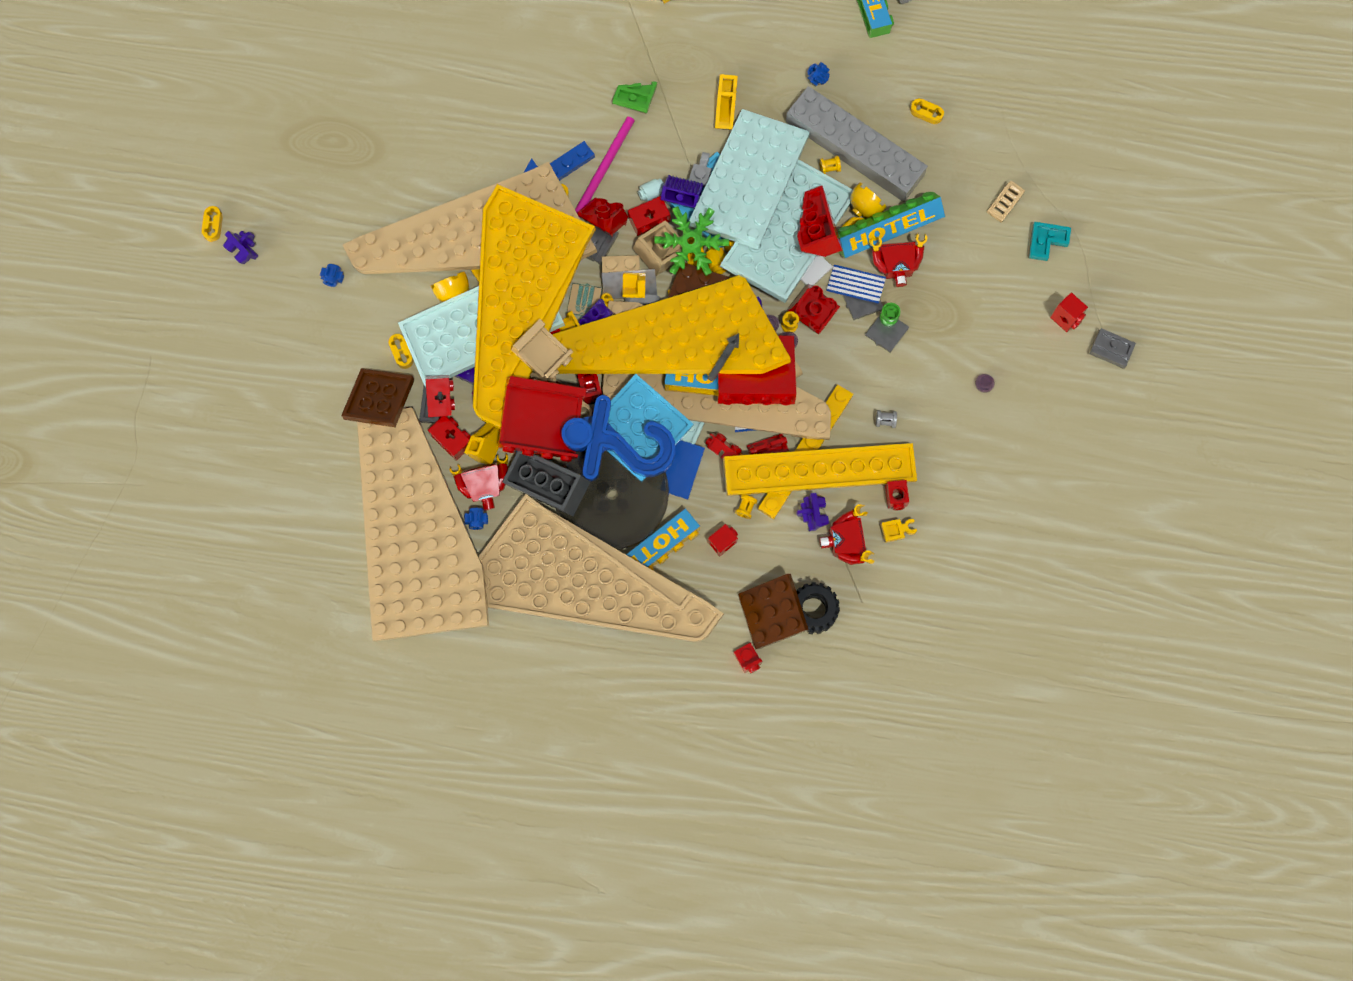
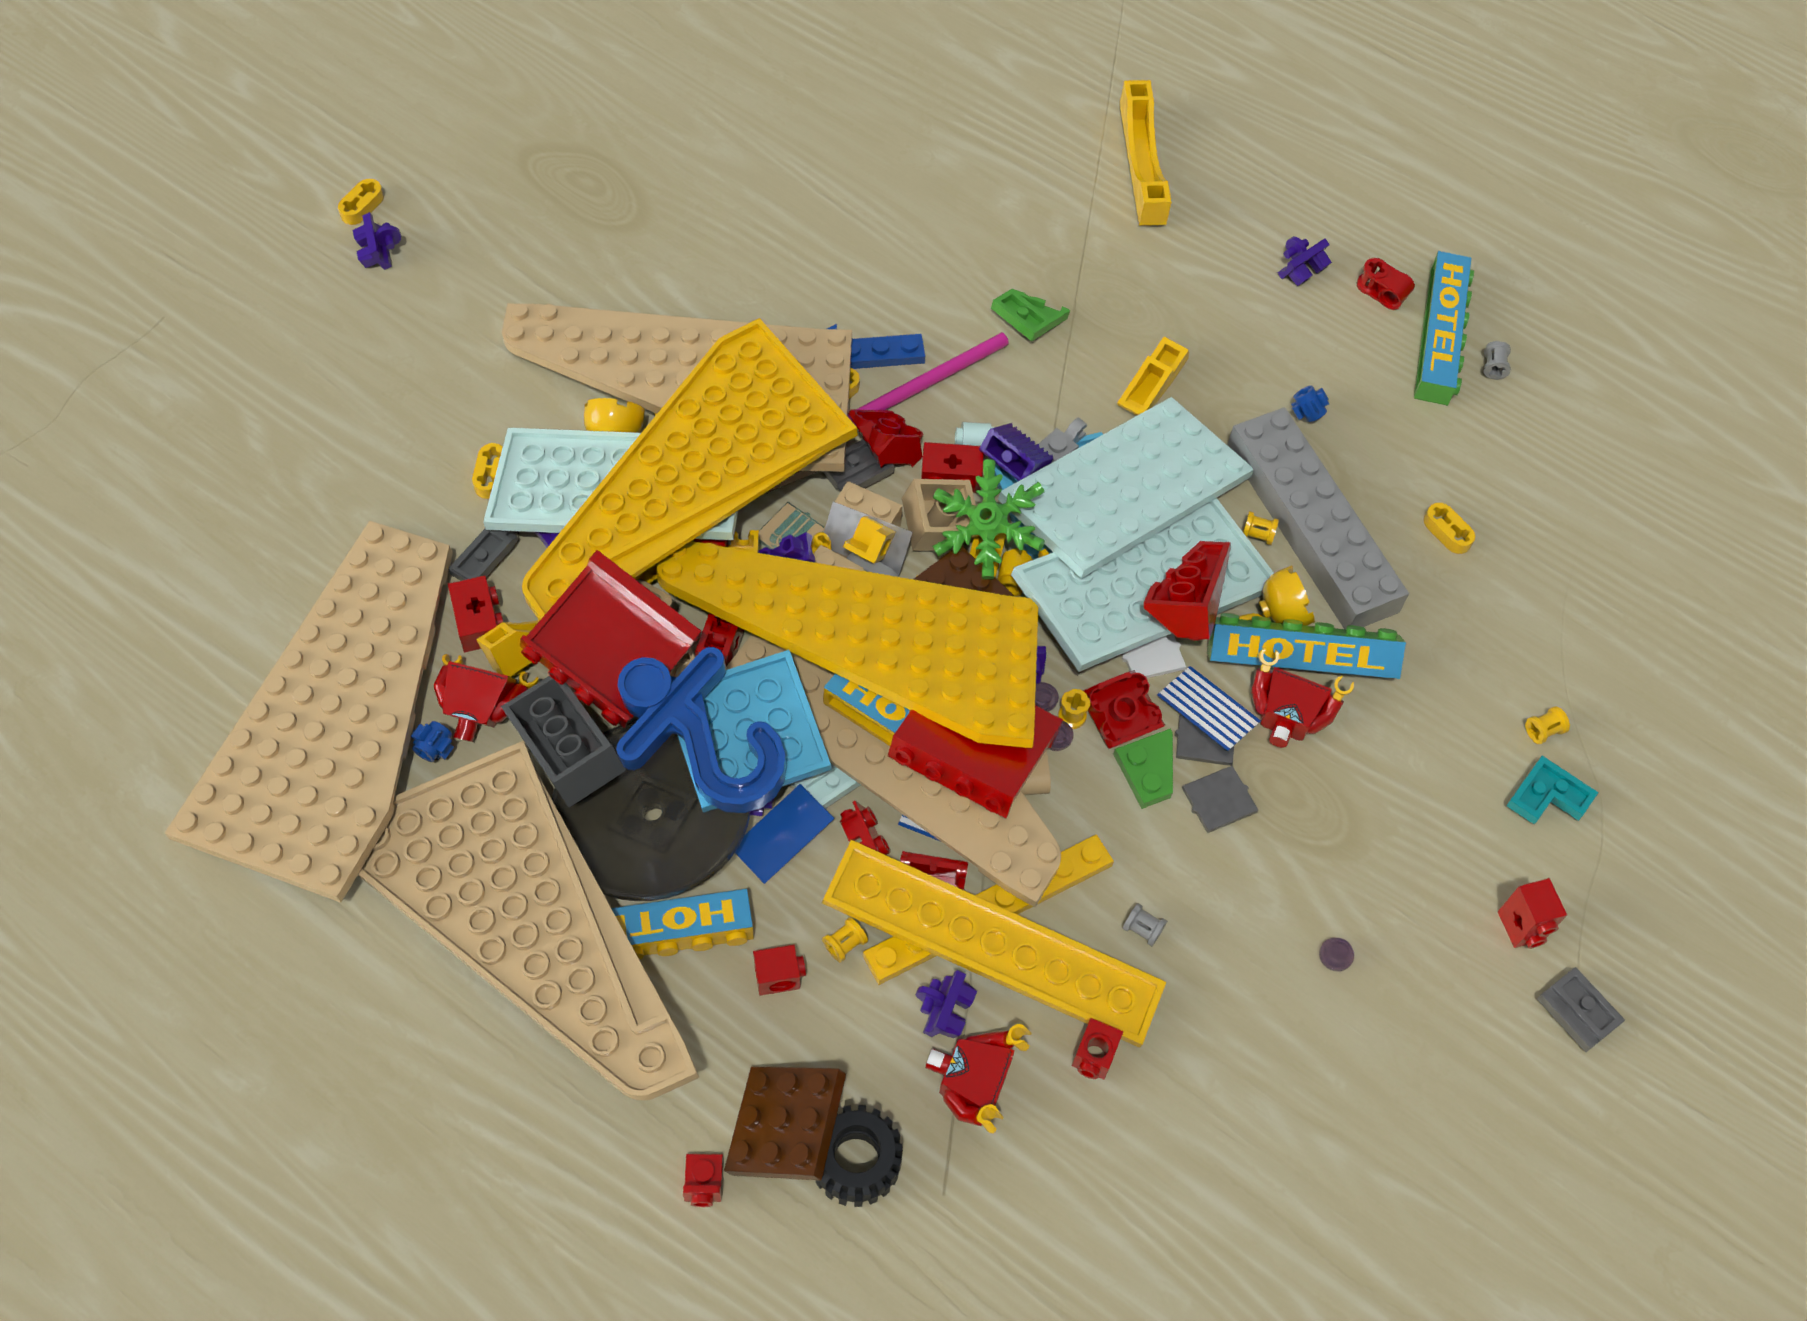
camera: 25 degrees right, 15 degrees down
(331, 275) = (465, 331): blue gear -> none
(378, 397) = (411, 508): reddish brown plate -> none
(438, 407) = (478, 552): red brick -> none
(542, 351) = (670, 547): tan panel -> none
(733, 343) = (959, 673): dark grey piece -> none
(843, 333) = (1148, 767): none -> bright green wing
(892, 310) = (1239, 766): bright green wheel -> none
(895, 531) = (1061, 1105): yellow plate -> none
(1012, 191) = (1526, 695): tan slope -> none
(1029, 202) = (1551, 723): none -> yellow bush

